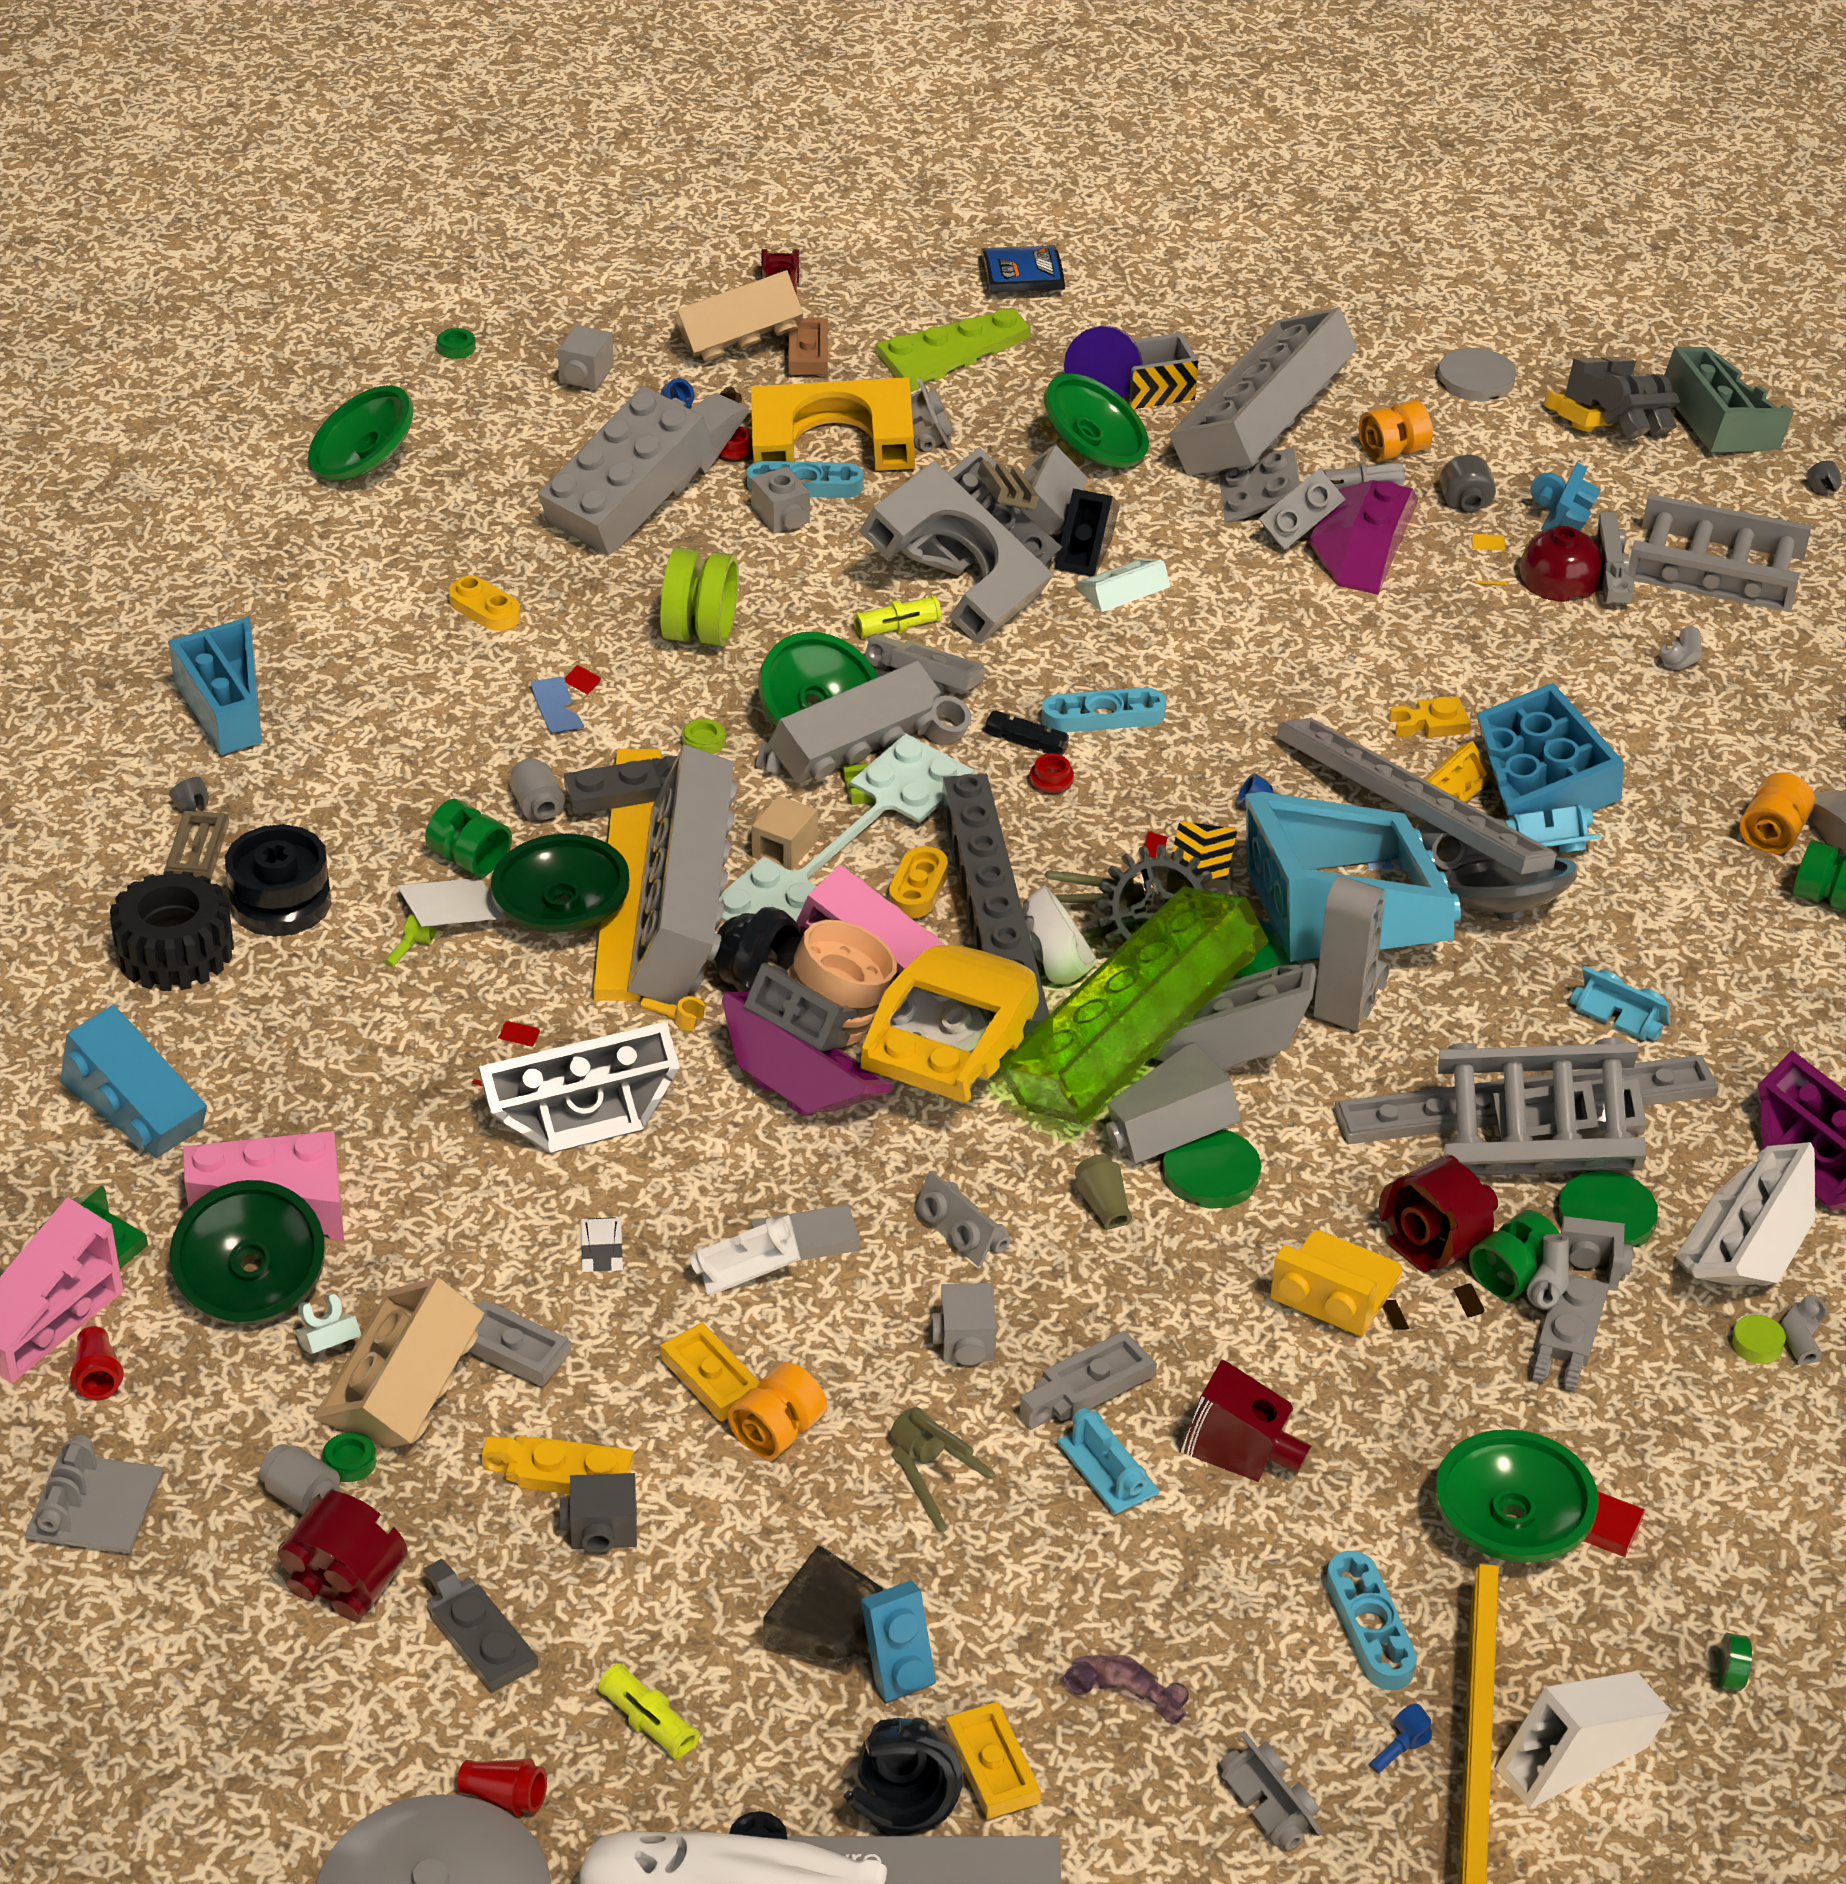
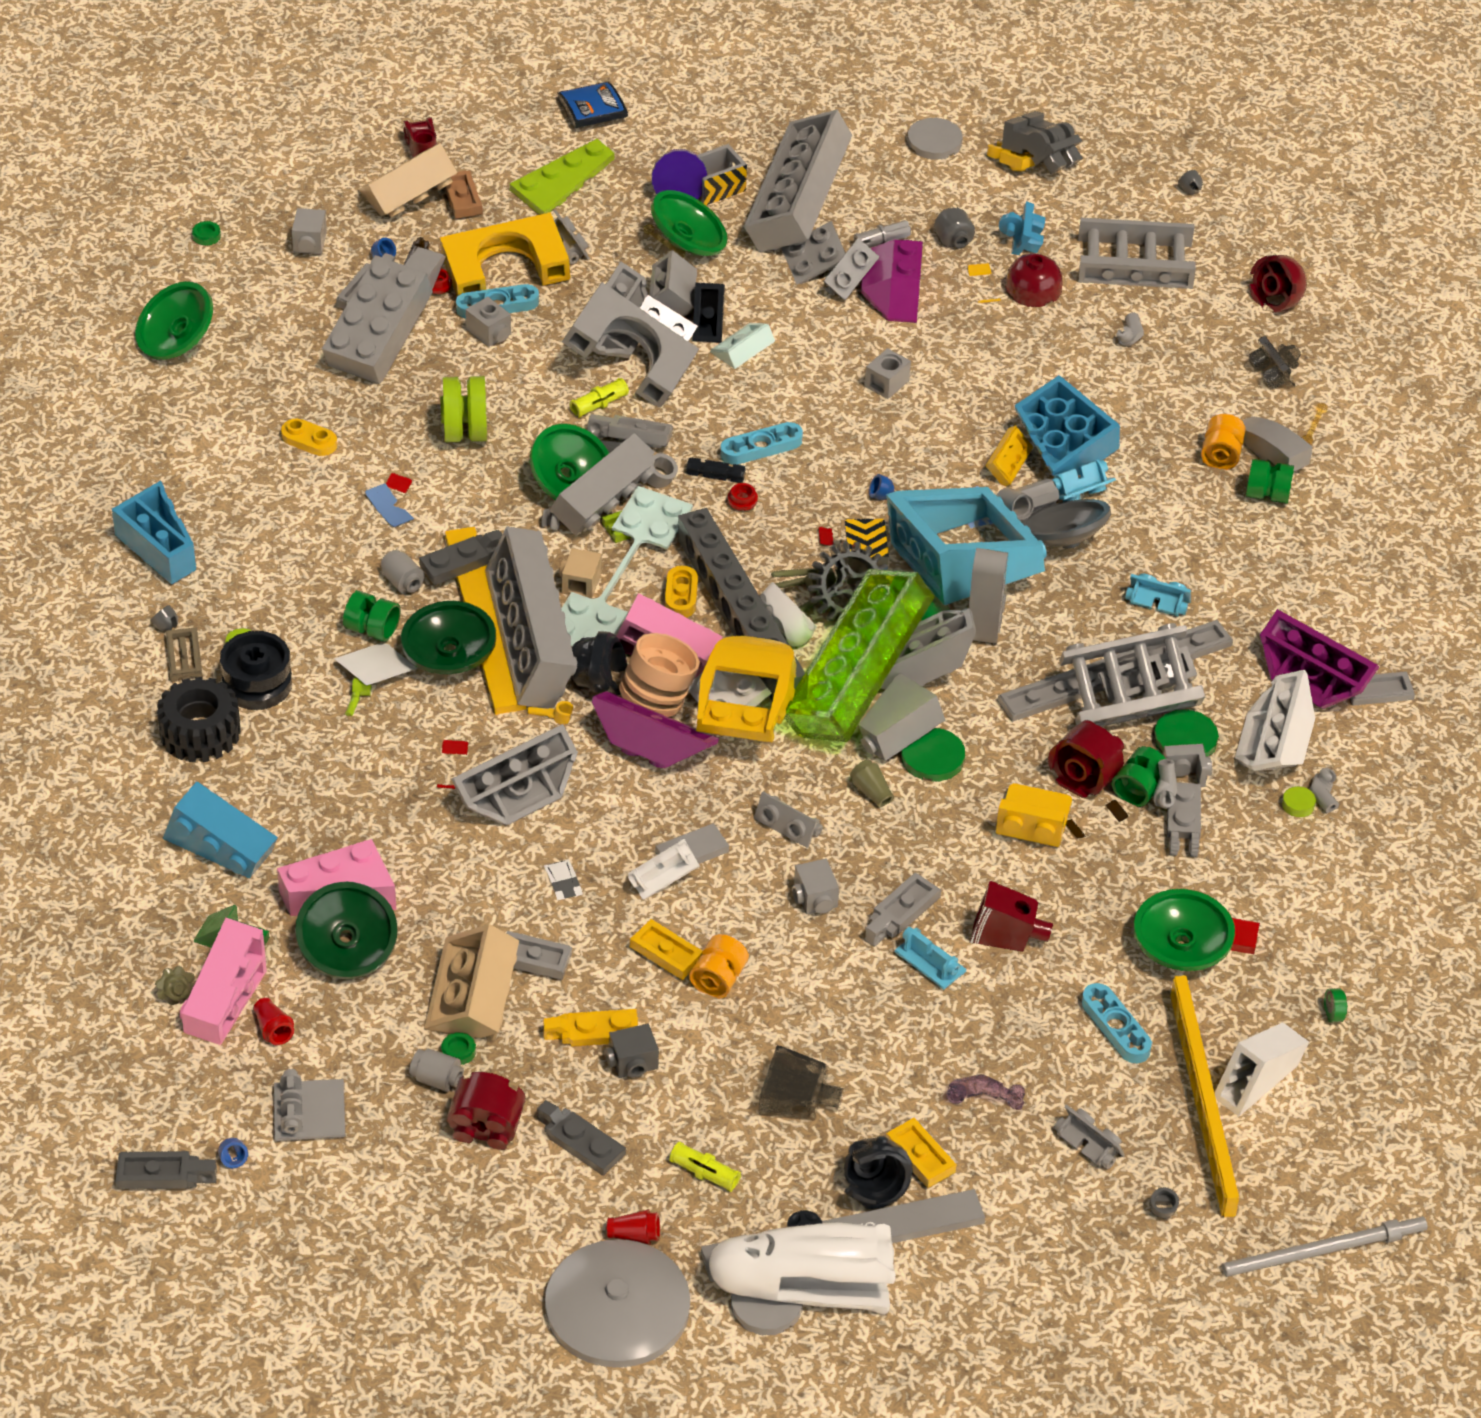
camera: 15 degrees left, 5 degrees up
(327, 1330) = (415, 970): light aqua tile -> none
(704, 735) = (498, 511): lime tile -> none
(798, 1009) = (646, 699): dark grey hinge -> none
(898, 1641) = (845, 1093): dark azure plate -> none
(924, 1439) = (814, 965): olive plant -> none
(1002, 483) = (650, 287): dark tan tile -> none
(1312, 648) = (887, 373): none -> light grey brick
(1395, 430) = (894, 195): light orange wheel -> none
(1415, 1732) = (1161, 1084): blue hand -> none
(1417, 796) = (990, 472): light grey tile -> none
(1435, 716) = (981, 408): yellow plate -> none
(1611, 544) = (1071, 275): light grey hinge -> none
(1722, 406) = (1109, 138): sand green wedge -> none

